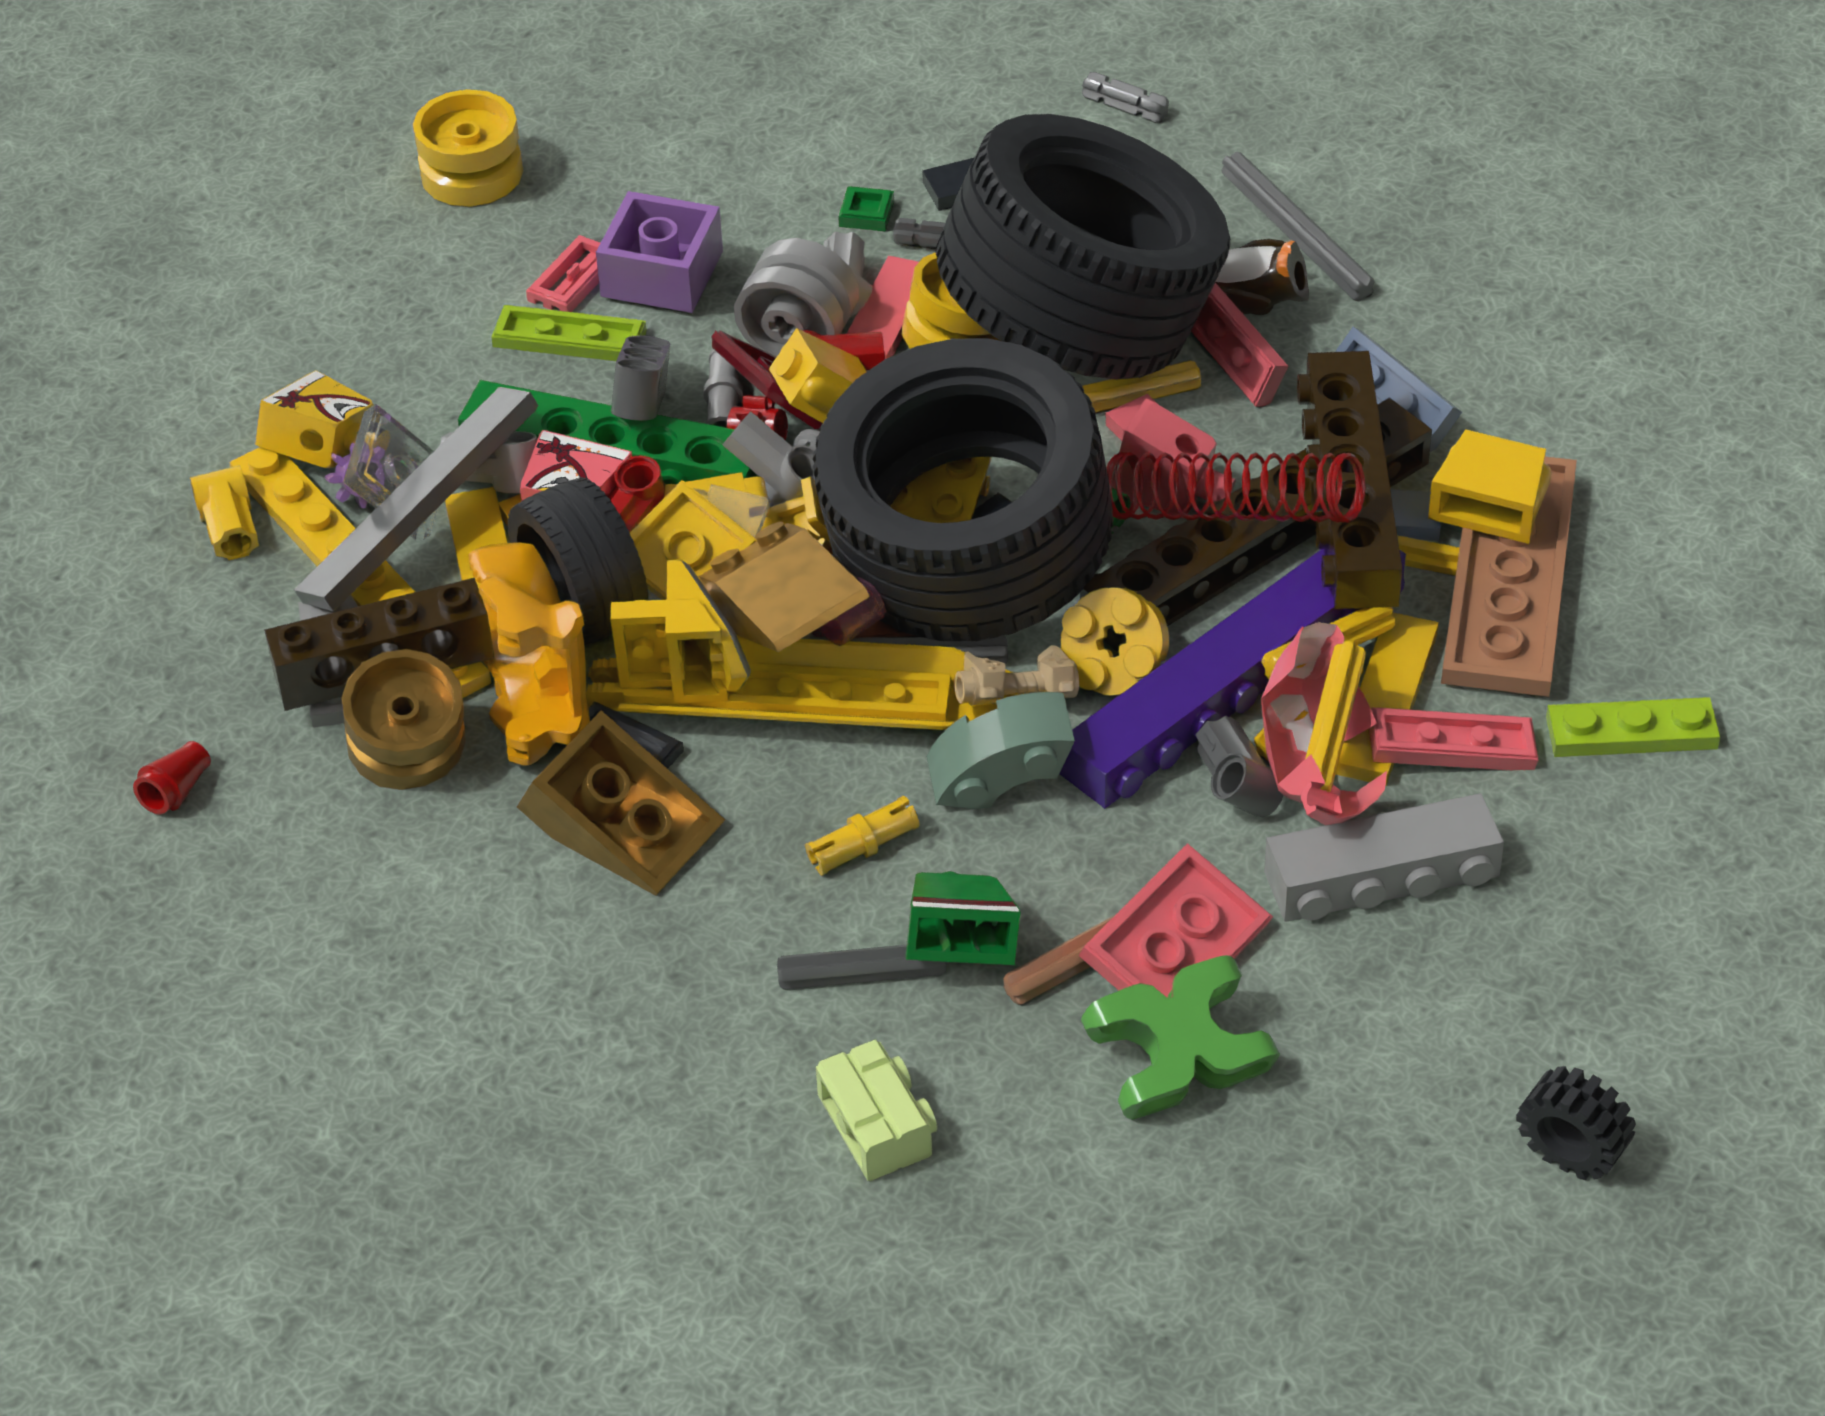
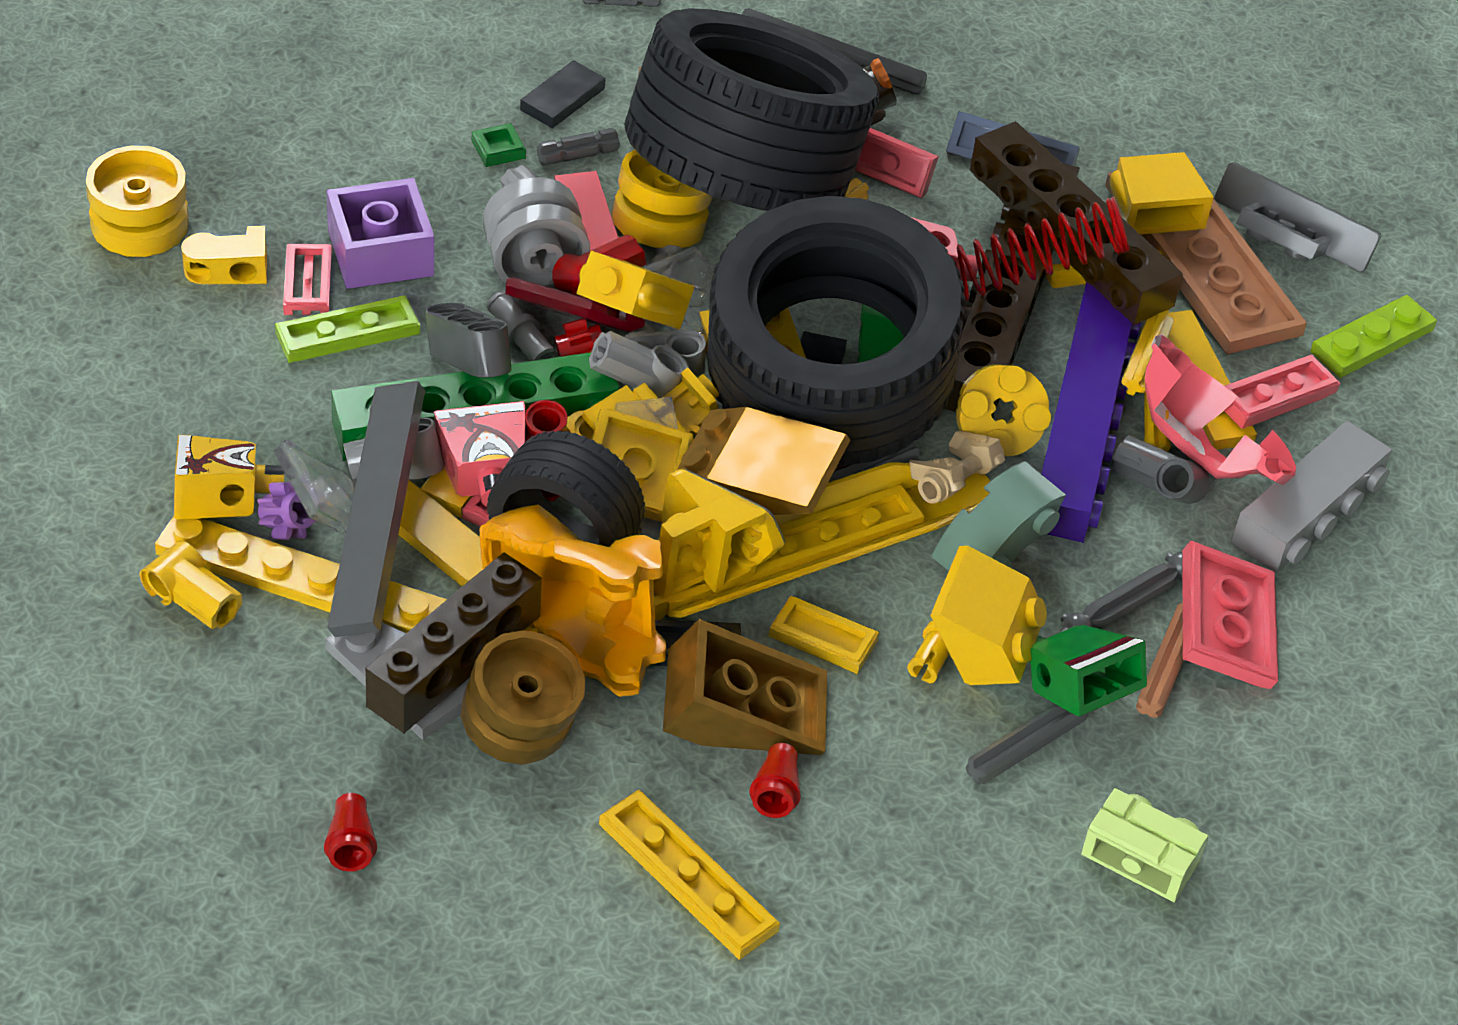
camera: 40 degrees left, 0 degrees up
(433, 945) = (689, 874): none -> yellow tile
(513, 229) = (226, 258): none -> yellow leg
(579, 898) = (776, 785): none -> red cone
(756, 786) = (823, 634): none -> yellow tile
(898, 824) = (988, 618): none -> yellow slope
(1080, 876) = (1128, 596): none -> dark grey wheel
(1179, 1036) = (1306, 688): bright green piece -> none
(1335, 709) = (1212, 398): yellow axle -> none
(1645, 573) = (1294, 220): none -> dark grey bracket

